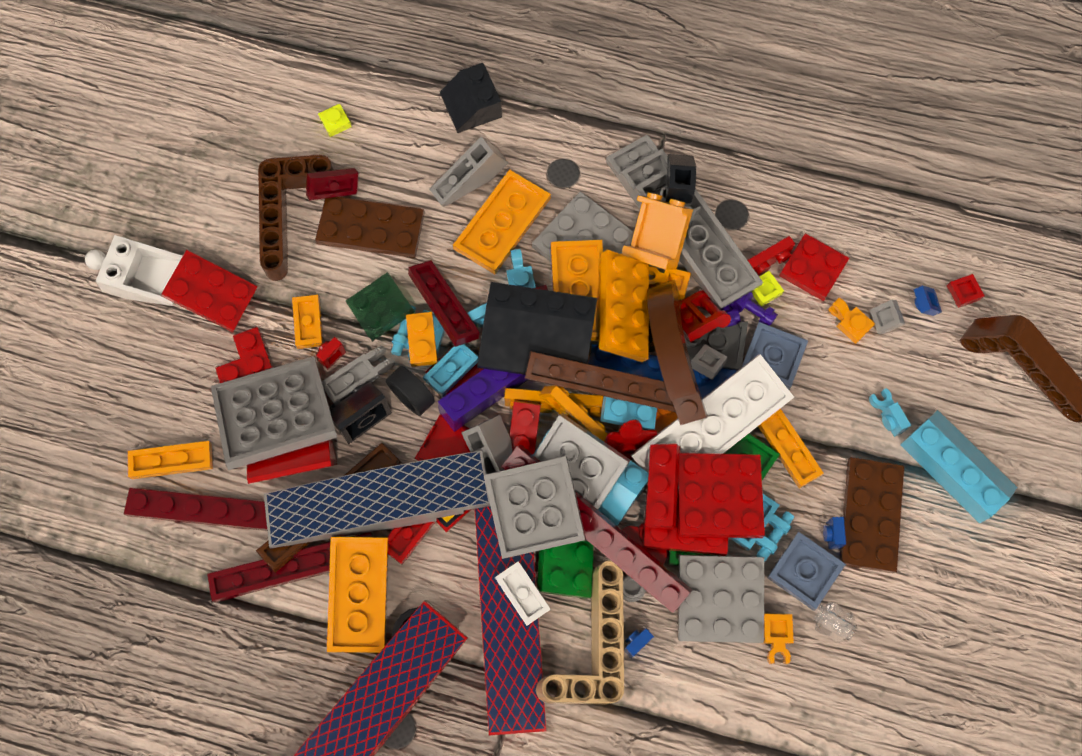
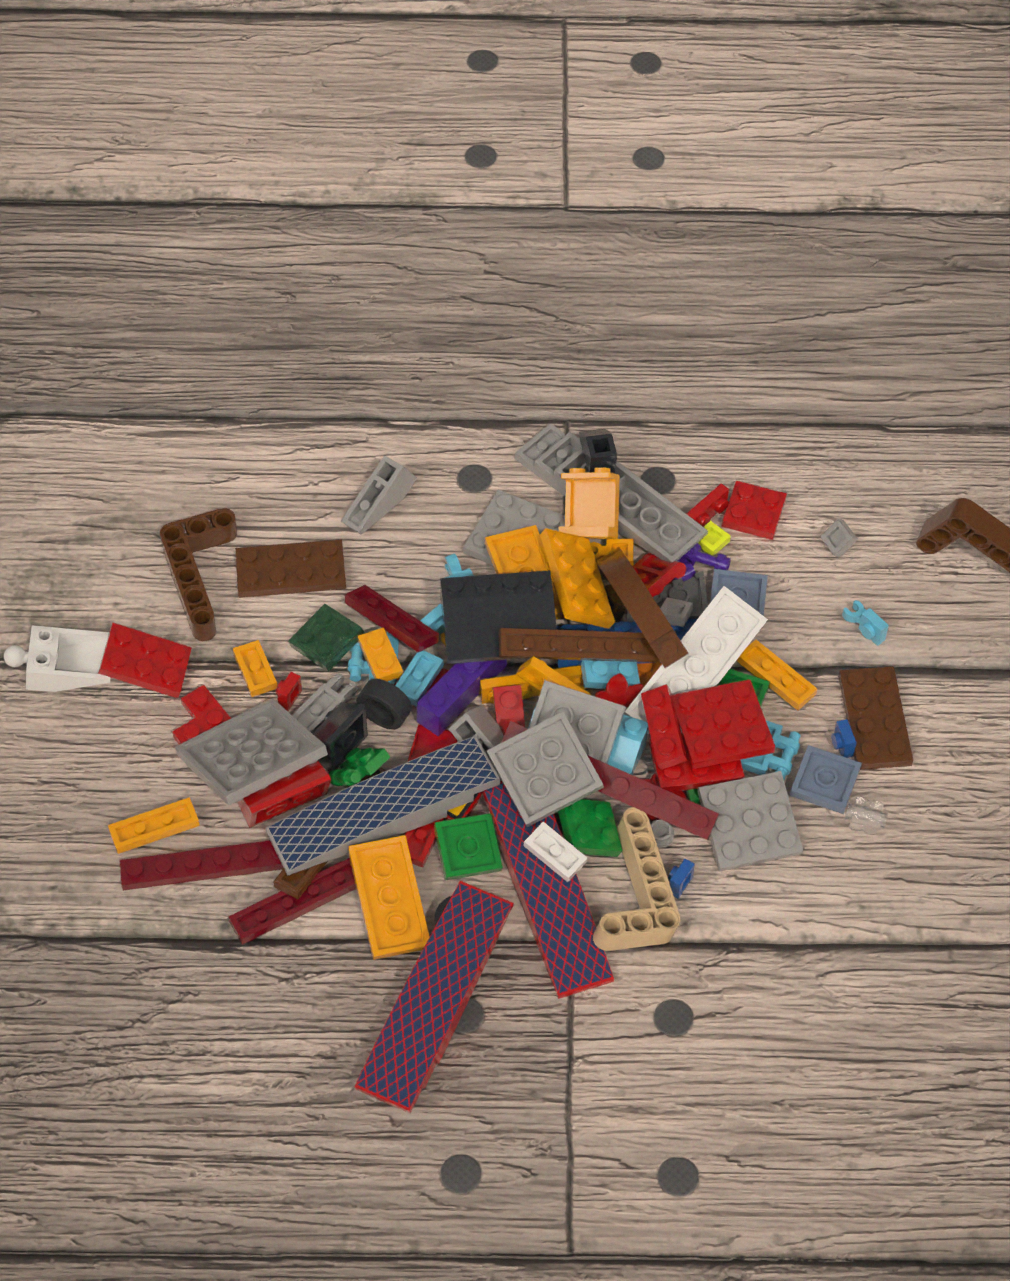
camera: 15 degrees left, 15 degrees down
(331, 184) = (241, 533): dark red plate -> none
(334, 120) = (220, 477): neon yellow plate -> none
(370, 449) = (358, 764): none -> green plate
(446, 558) = (468, 846): none -> green plate
(471, 98) = (359, 426): black slope -> none
(502, 221) = (426, 534): light orange plate -> none
(778, 632) = (816, 840): light orange plate -> none
(853, 323) = (806, 552): light orange plate -> none
(927, 301) = (873, 515): blue plate -> none
(959, 467) = (945, 656): medium azure slope -> none
(965, 290) = (908, 499): red plate -> none

